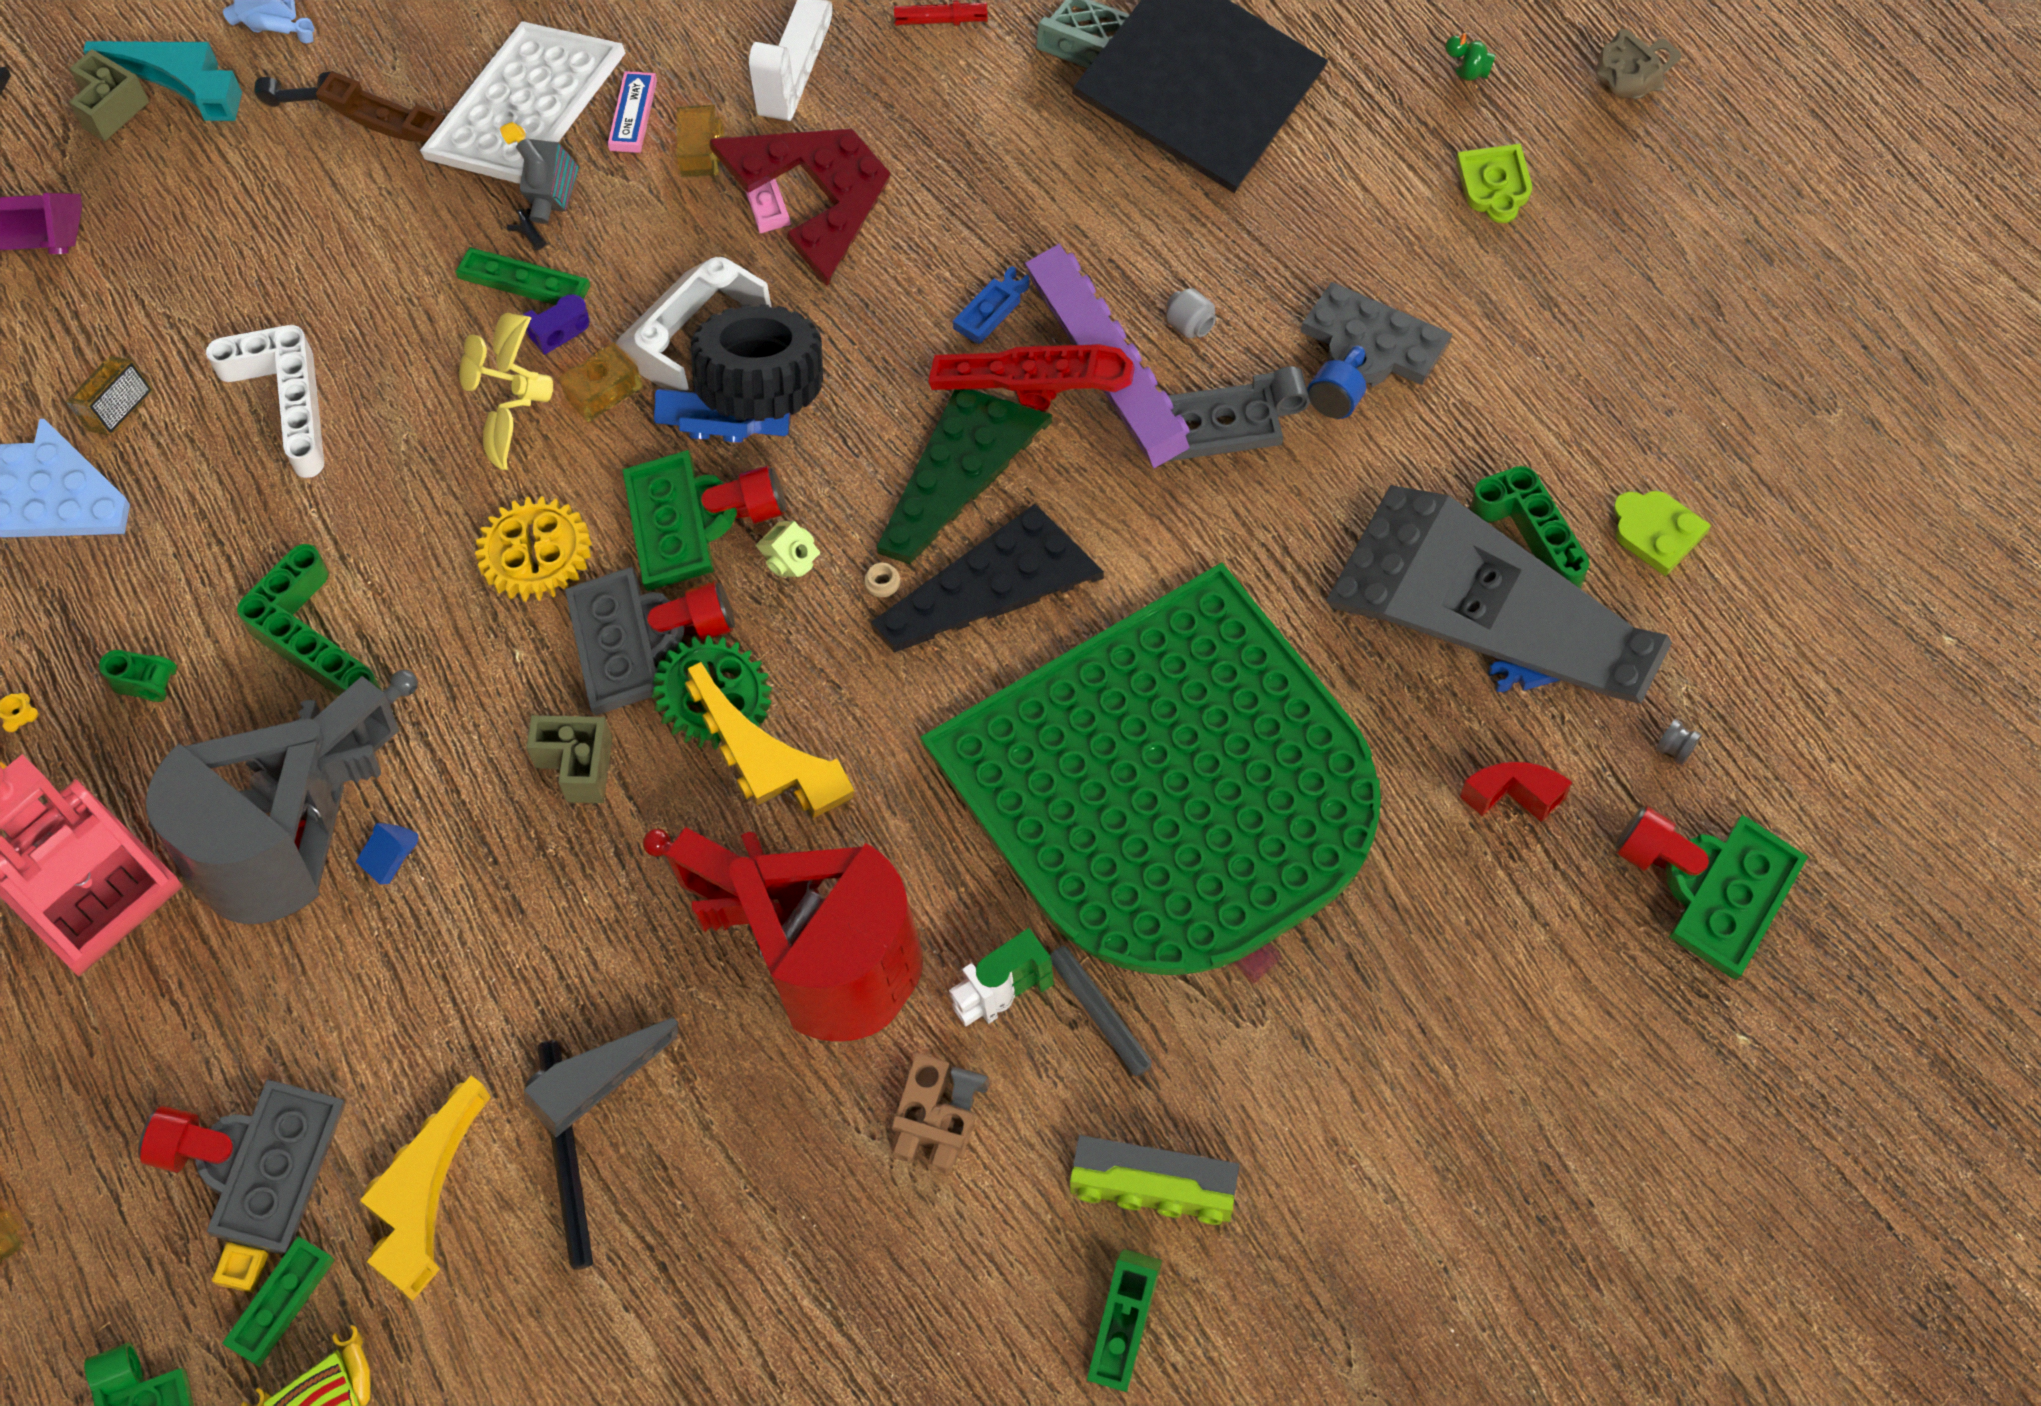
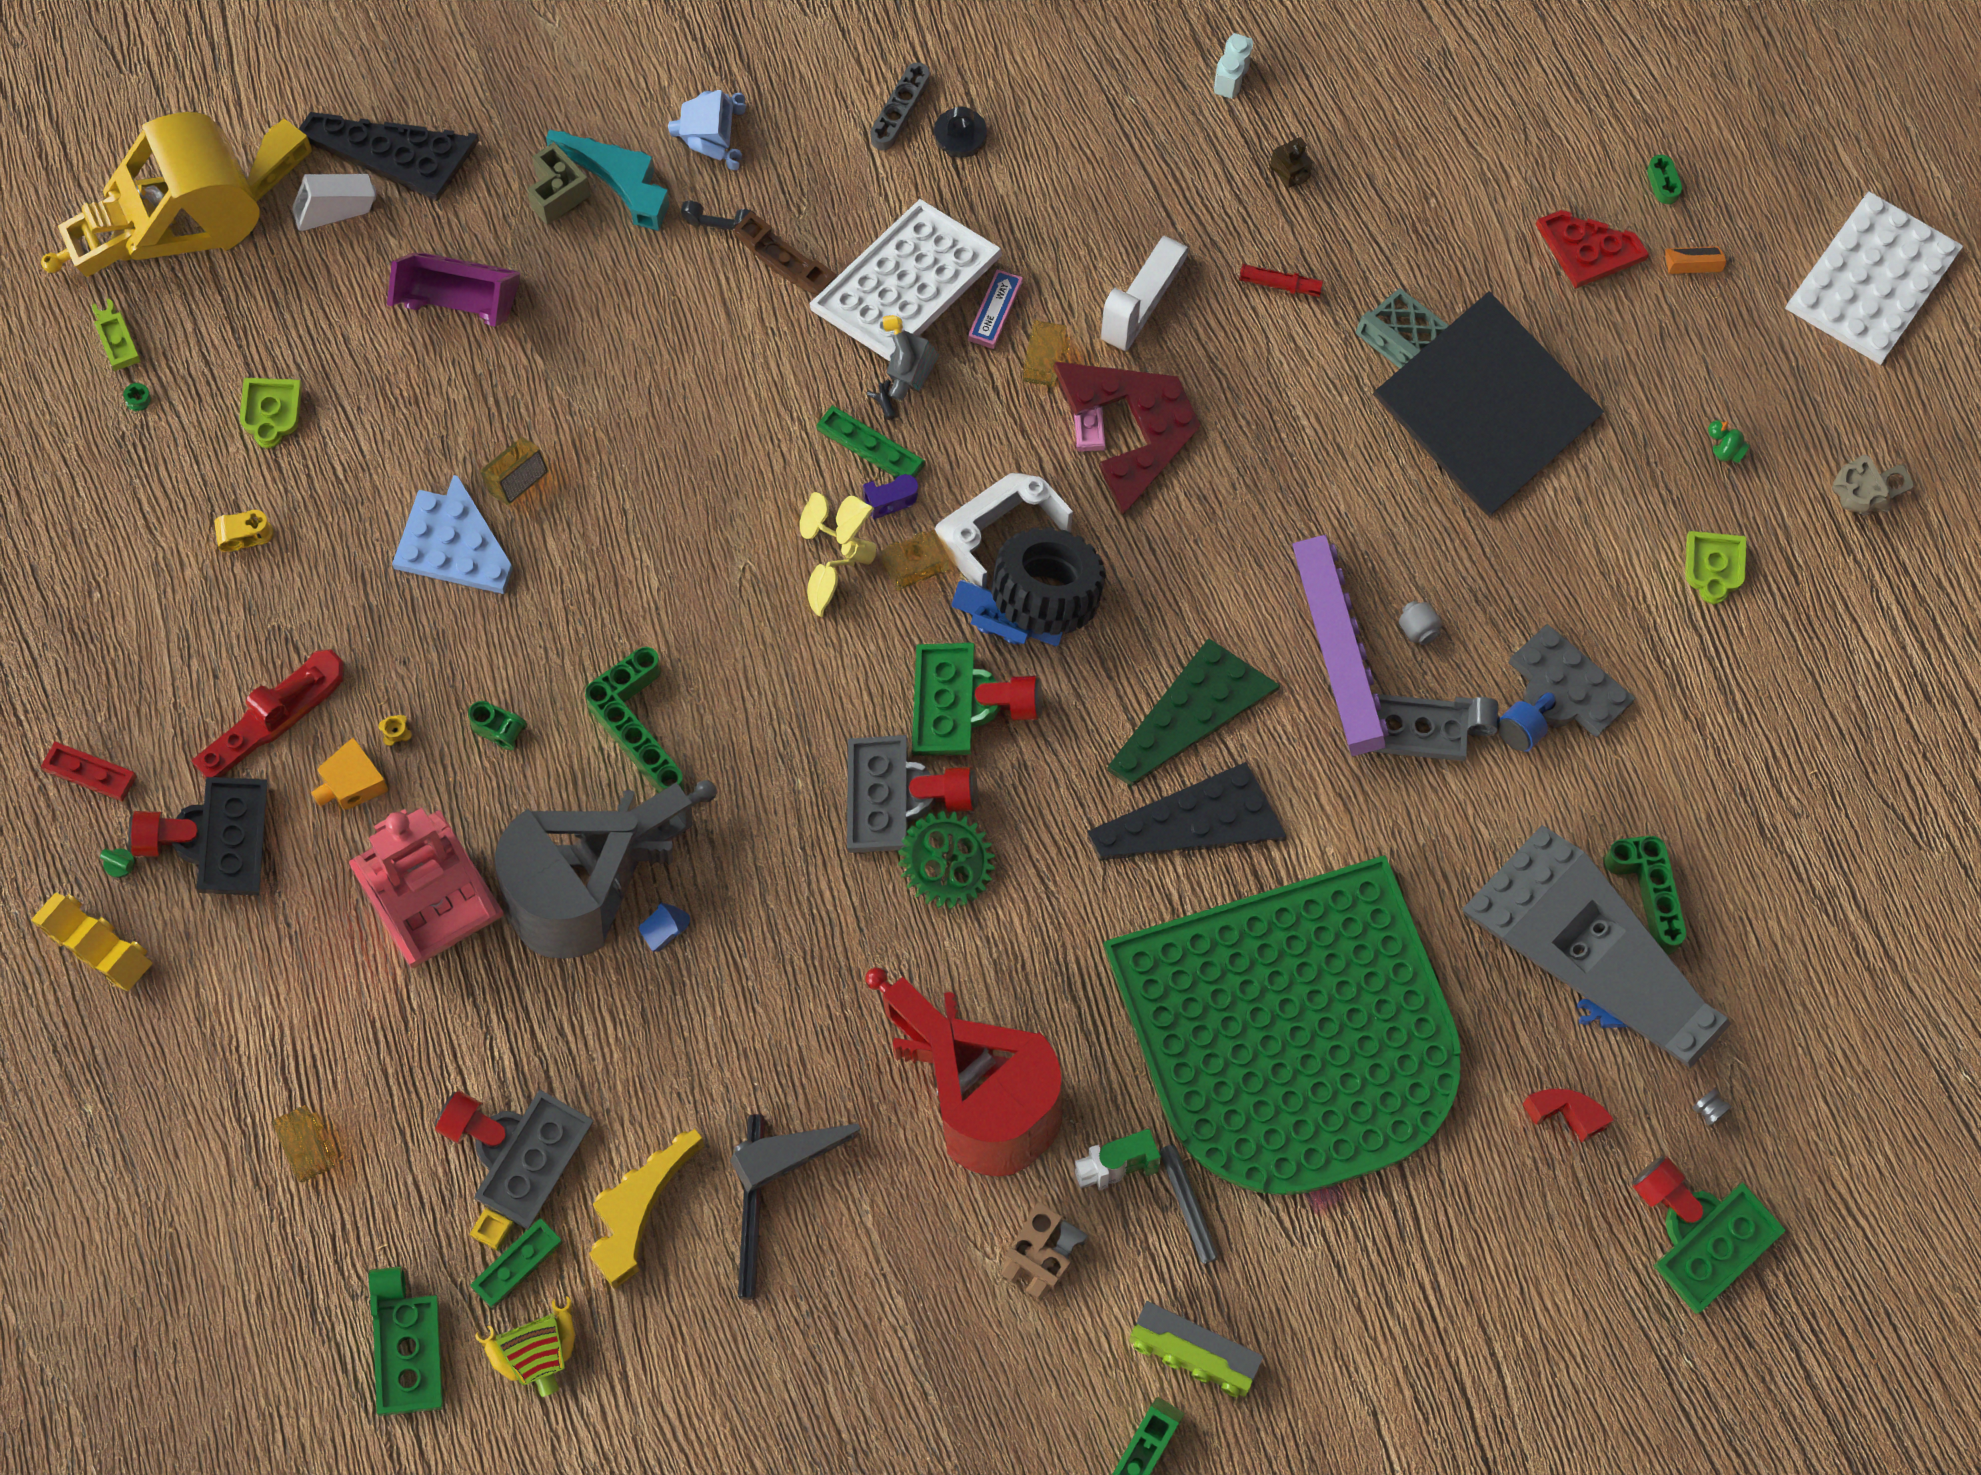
camera: 10 degrees right, 5 degrees up
(288, 354) = (662, 500): white beam -> none
(500, 553) = (857, 697): yellow gear -> none
(577, 748) = (831, 879): olive brick -> none
(764, 762) = (973, 931): yellow arch -> none
(788, 549) = (1035, 752): yellowish green brick -> none
(879, 572) = (1107, 789): tan plate -> none
(991, 306) = (1254, 573): blue plate -> none
(1035, 371) = (1276, 647): red piece -> none
(1657, 528) = (1754, 917): lime plate -> none

